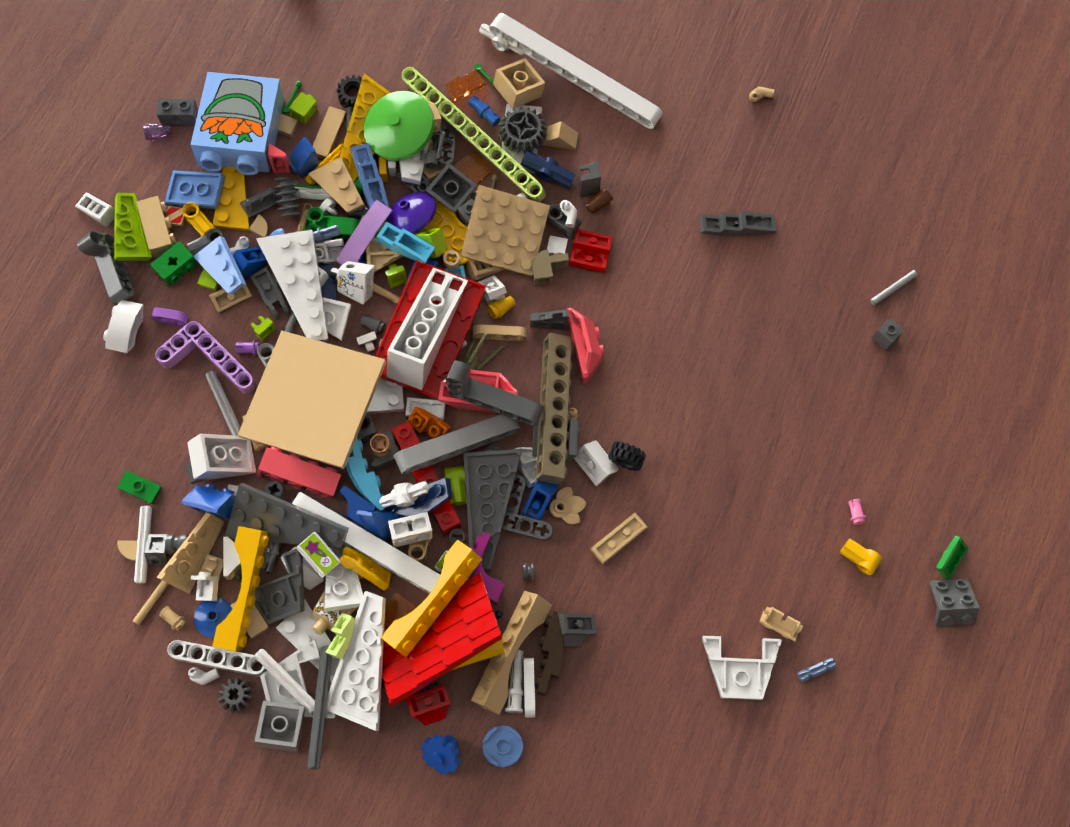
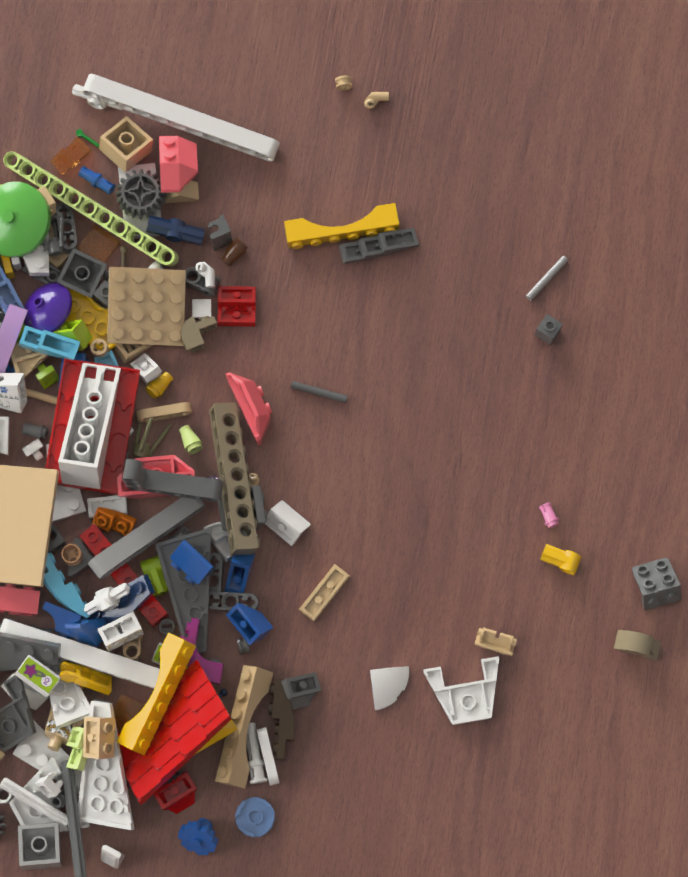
camera: 10 degrees left, 5 degrees up
(302, 667) = (48, 787): none -> white tile
(309, 683) = (59, 800): none -> dark grey pin
(349, 753) = (111, 856): none -> white slope
(364, 628) = (99, 737): none -> tan bracket
(495, 478) = (191, 562): none -> blue slope
(520, 367) = (191, 442): none -> yellowish green cone
(539, 550) = (249, 623): none -> blue slope
(550, 320) = (211, 388): dark grey wing -> none
(563, 107) = (177, 162): none -> coral wedge
(570, 506) = (270, 570): tan plate -> none
(627, 456) = (315, 510): black tyre -> none
(653, 346) = (318, 391): none -> dark grey bar
(664, 643) = (387, 685): none -> white brick
(669, 197) = (302, 232): none -> yellow arch
(733, 73) = (343, 83): none -> tan bush
(816, 670) = (538, 677): sand blue axle -> none
(924, 657) = (637, 644): none -> dark tan brick
(952, 557) = (648, 540): green plate -> none

